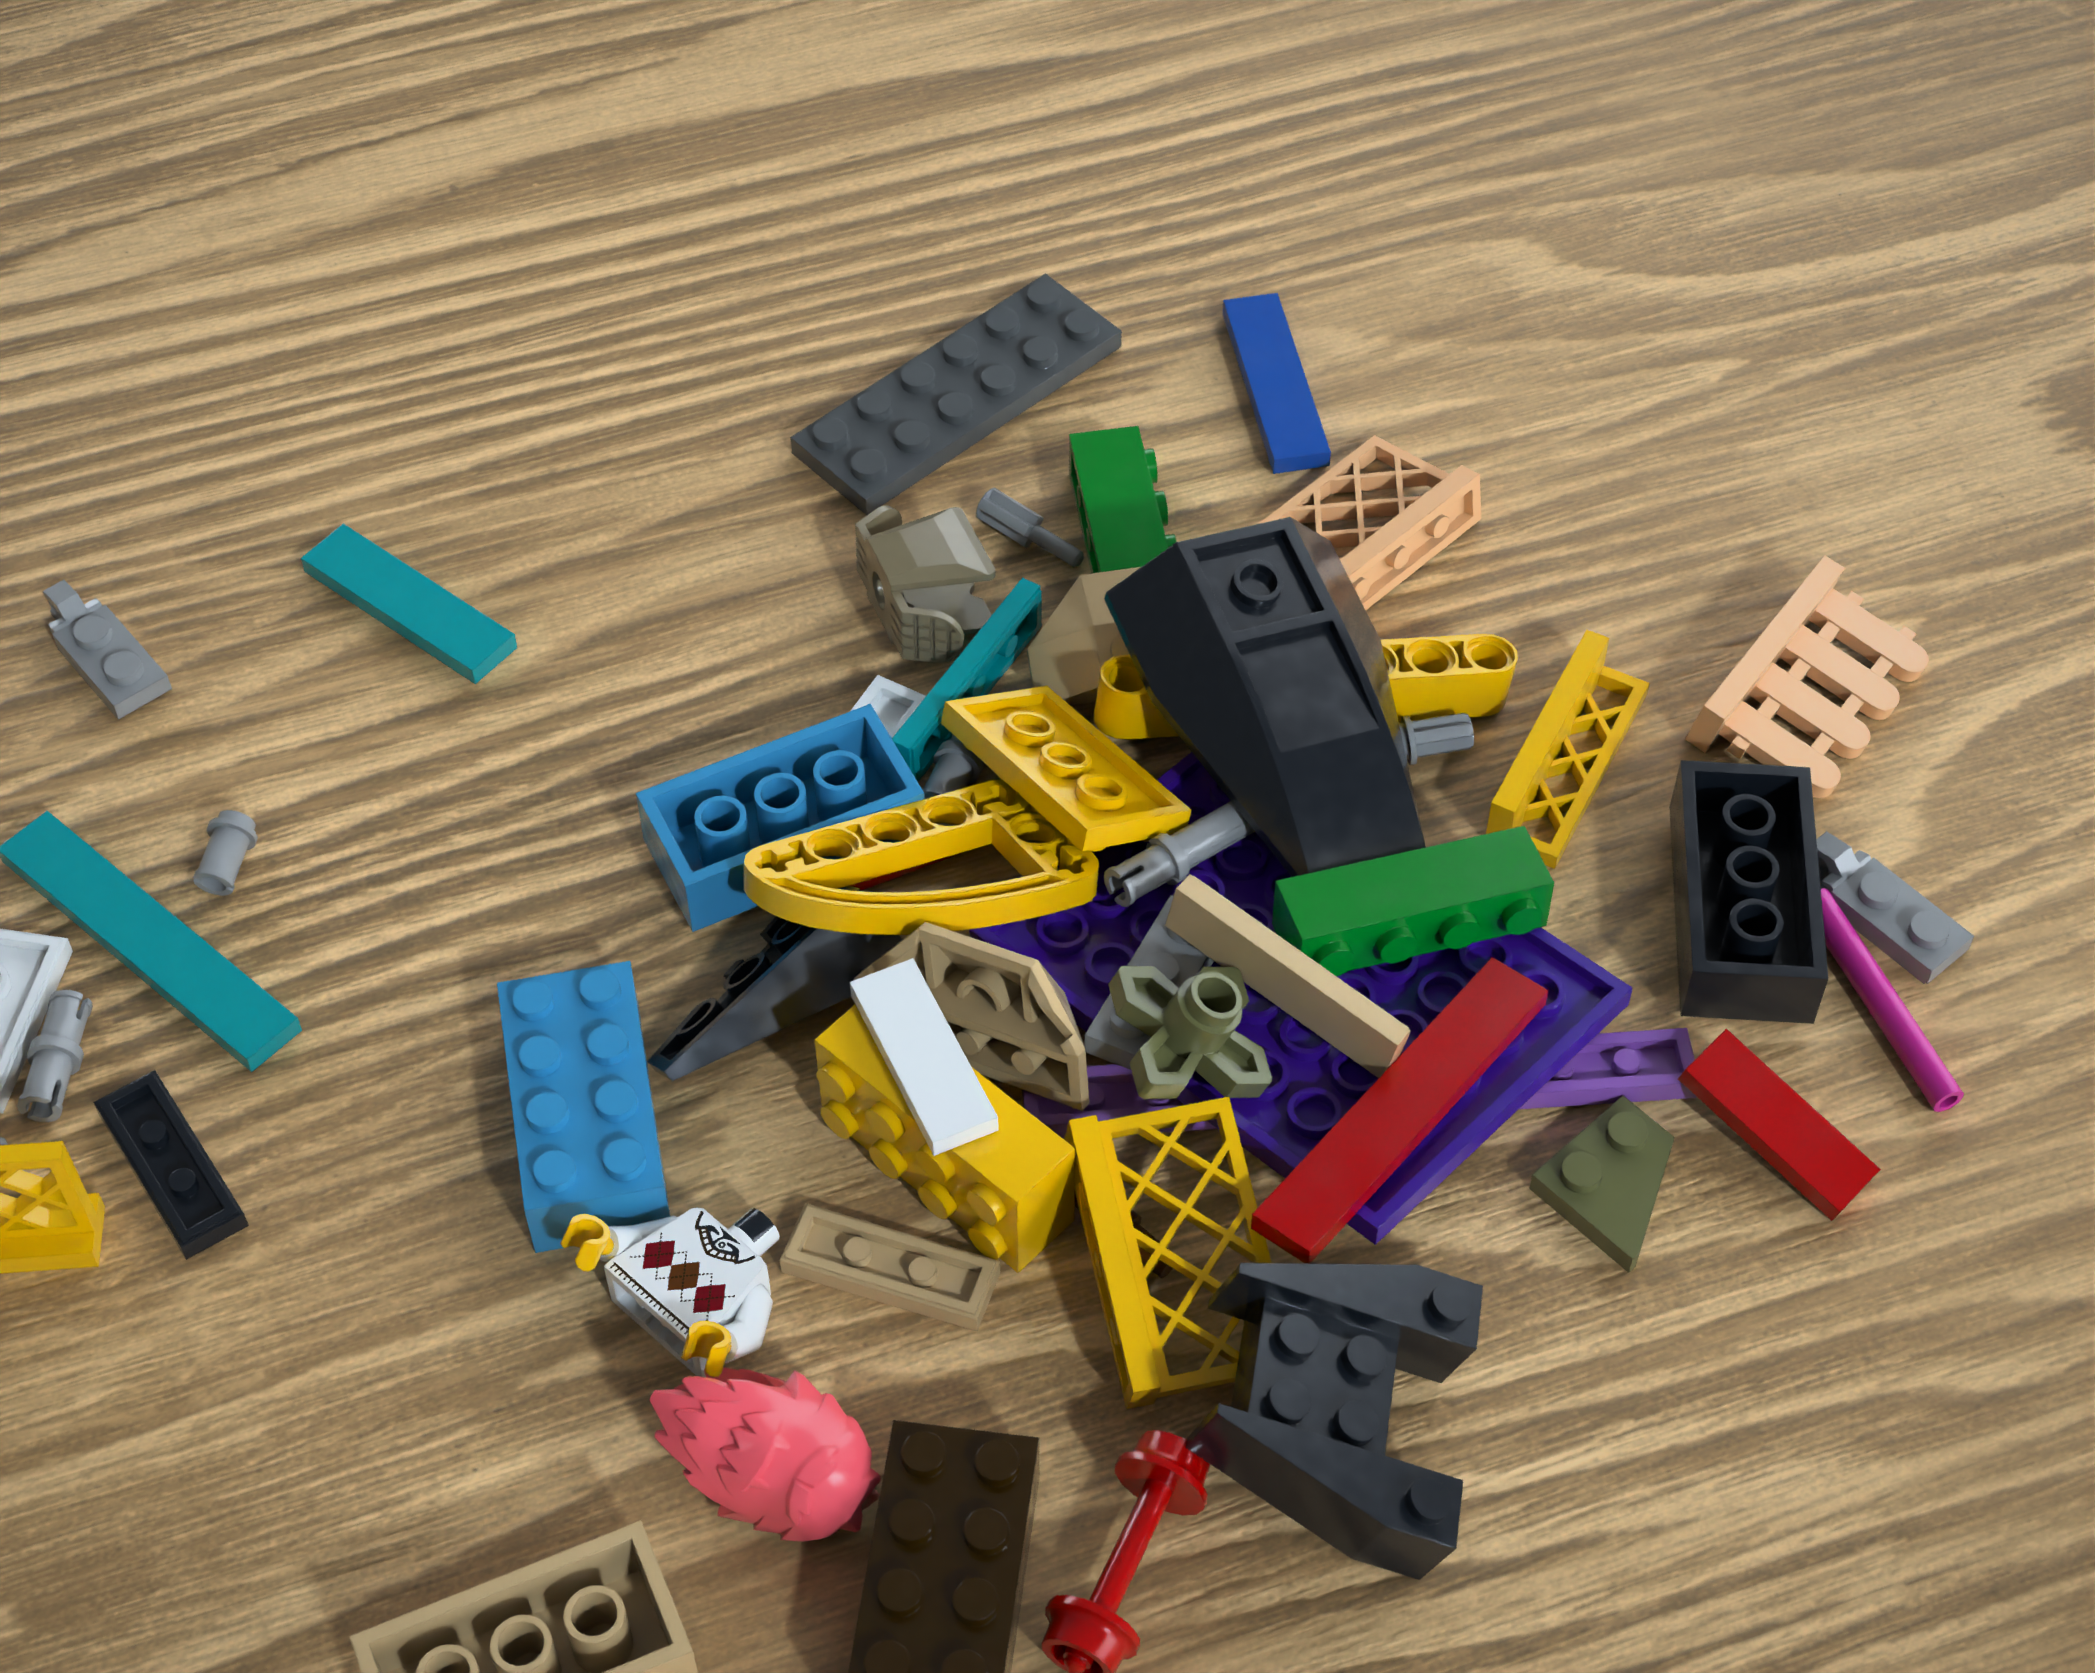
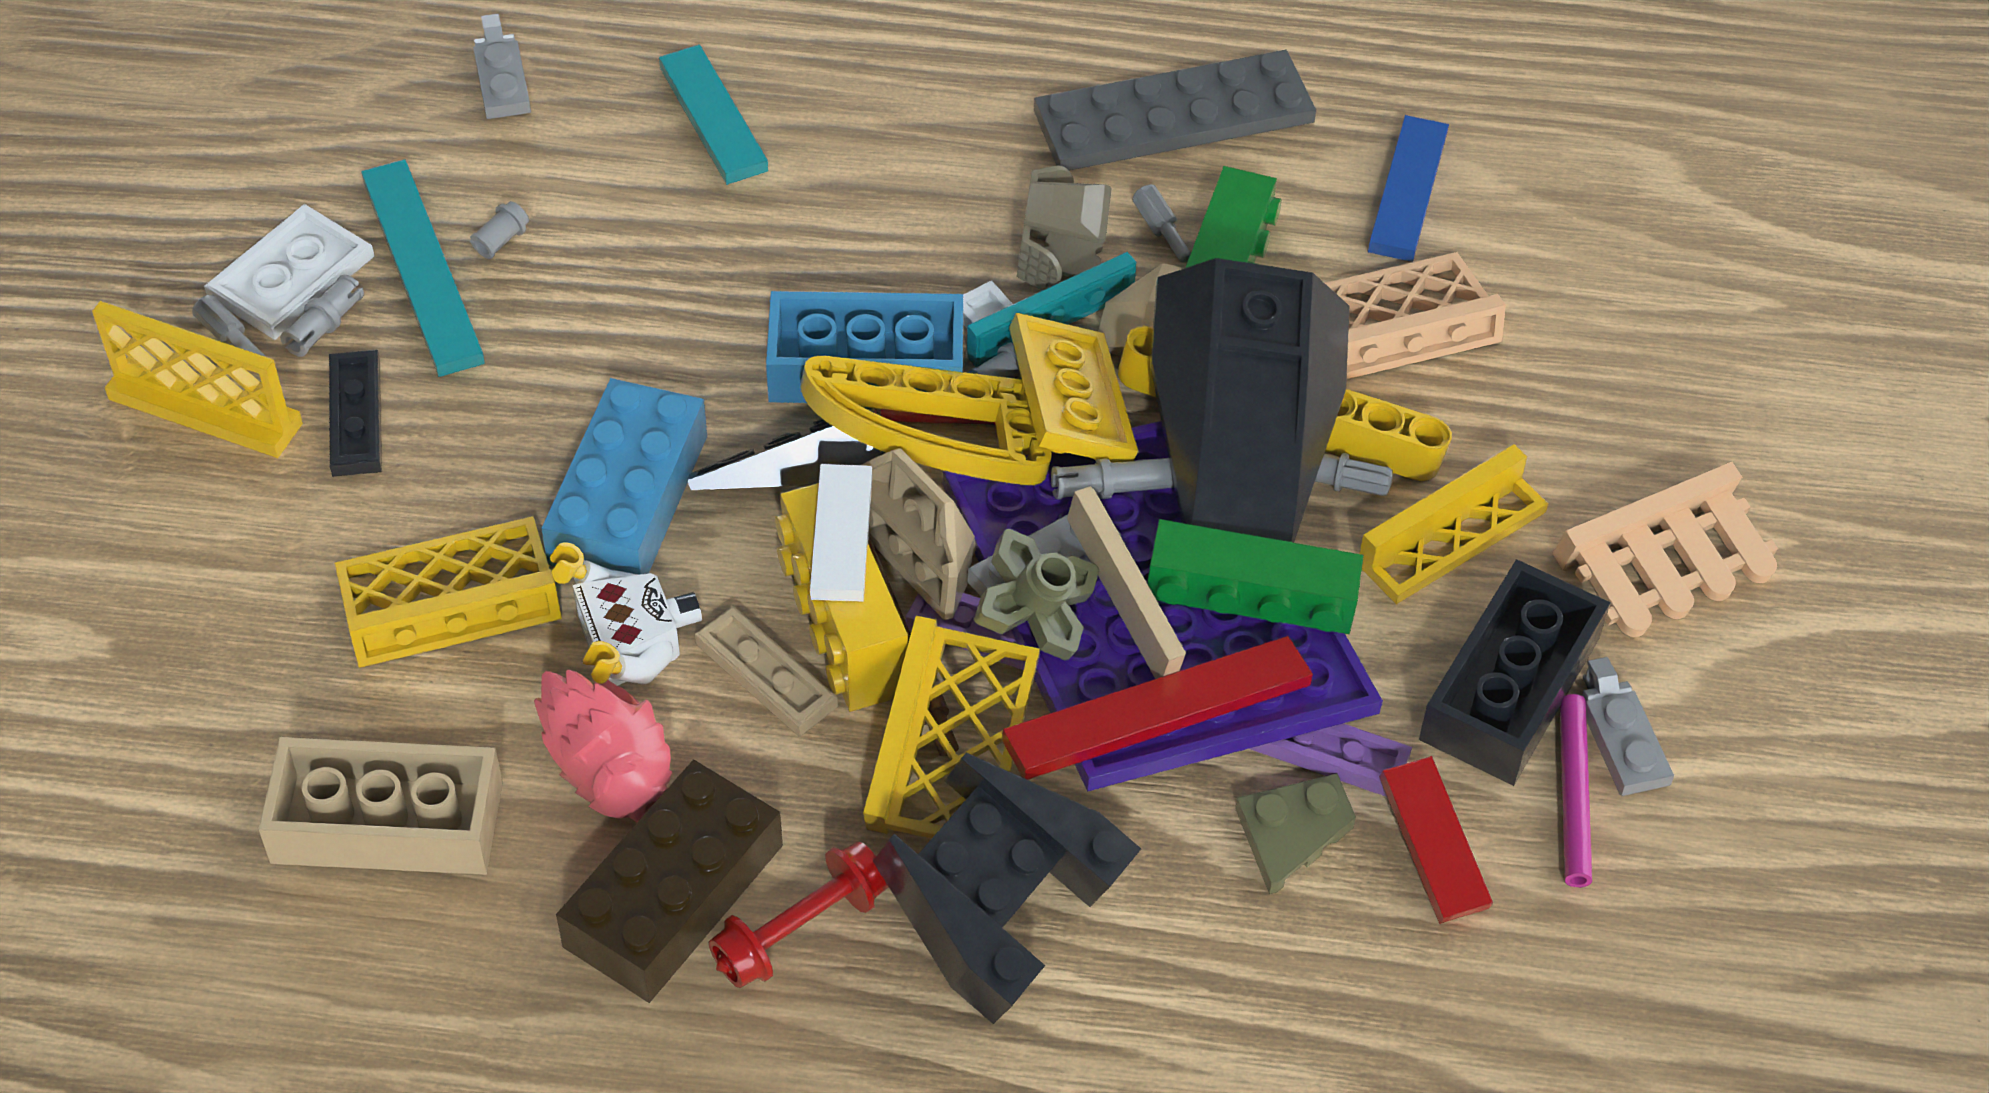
camera: 25 degrees right, 0 degrees up
(461, 1369) = (452, 613): none -> yellow fence

